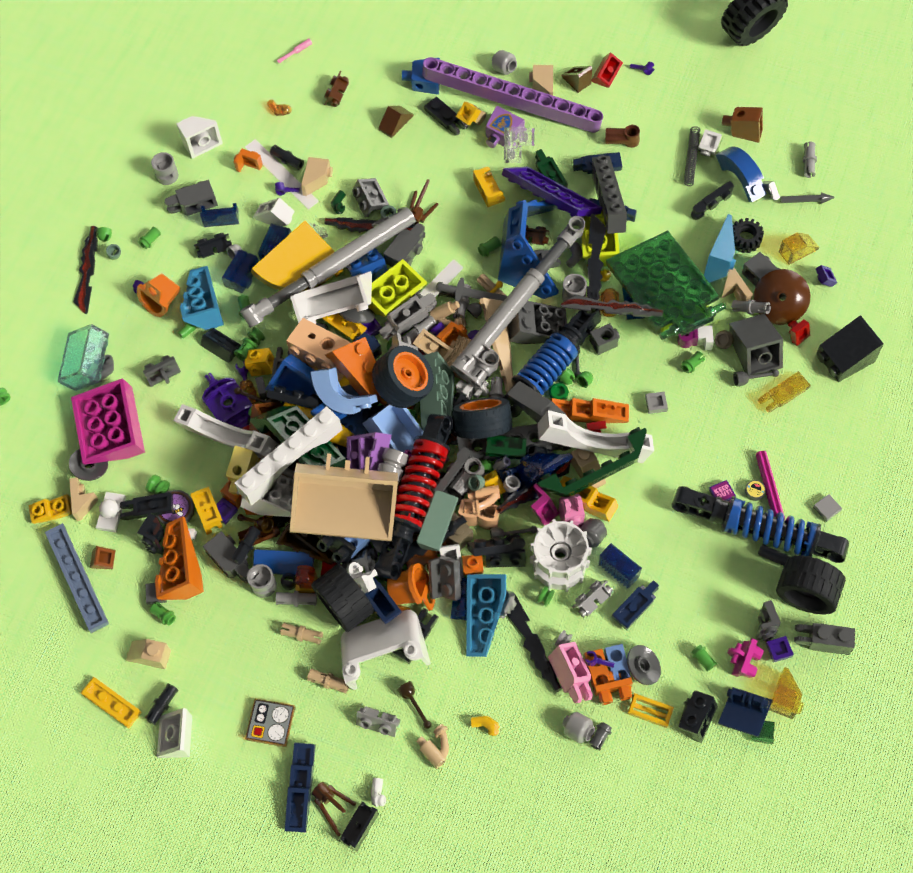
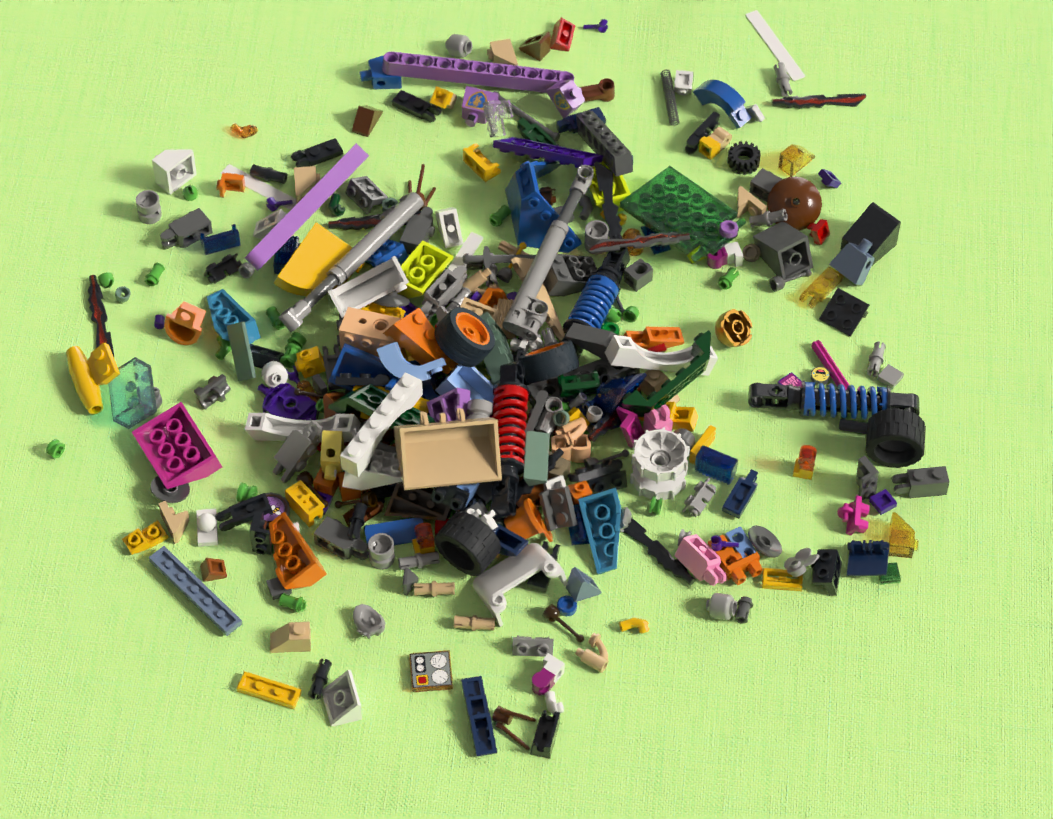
camera: 20 degrees left, 10 degrees down
(54, 327) = (91, 373): none -> yellow plate
(196, 337) = (241, 351): none -> sand green slope
(213, 164) = (187, 196): none -> bright green hinge
(213, 455) = (297, 450): none -> light grey hinge
(216, 485) = (308, 480): none -> dark brown hinge
(222, 366) = (274, 374): none -> white head
(227, 653) = (368, 621): none -> light grey hat
(238, 274) = (260, 287): clear blue brick -> none
(278, 618) = (409, 579): none -> dark grey slope
(286, 584) = (405, 548): black hinge -> none
(296, 50) = (242, 72): bright pink piece -> none
(304, 201) = (306, 207): none -> medium lavender beam
(332, 95) = (294, 107): reddish brown hinge -> none
(338, 146) = (317, 154): none -> black hinge
(382, 760) = (548, 676): none -> leg
(425, 684) = (567, 606): none -> blue tile
(436, 248) = (449, 227): none -> white slope
(445, 668) = (581, 585): none -> sand blue slope
(565, 172) = (555, 136): none -> dark grey bar
(588, 136) = (566, 97): none -> medium lavender torso
(614, 538) = (706, 439): none -> yellow tile
(656, 402) = (705, 319): light grey plate -> none
(672, 698) = (797, 565): none -> light grey plate
(680, 420) = (733, 328): none -> pearl gold cylinder
(703, 657) = (817, 524): bright green pin -> none
(704, 313) = (728, 229): none -> medium lavender tile
(710, 587) = (805, 463): none -> clear red leg
(720, 212) = (715, 142): none -> leg
(722, 253) = (728, 176): dark azure wedge -> none
(745, 123) = (713, 57): dark orange torso -> none
(799, 425) = (844, 312): none -> black hinge
(806, 198) = (792, 114): dark grey piece -> none
(813, 121) = (775, 45): none -> white sticker
(818, 485) = (876, 359): none -> light grey pin
(824, 374) = (854, 261): none -> sand blue torso
(840, 189) = (851, 100): none -> black sword

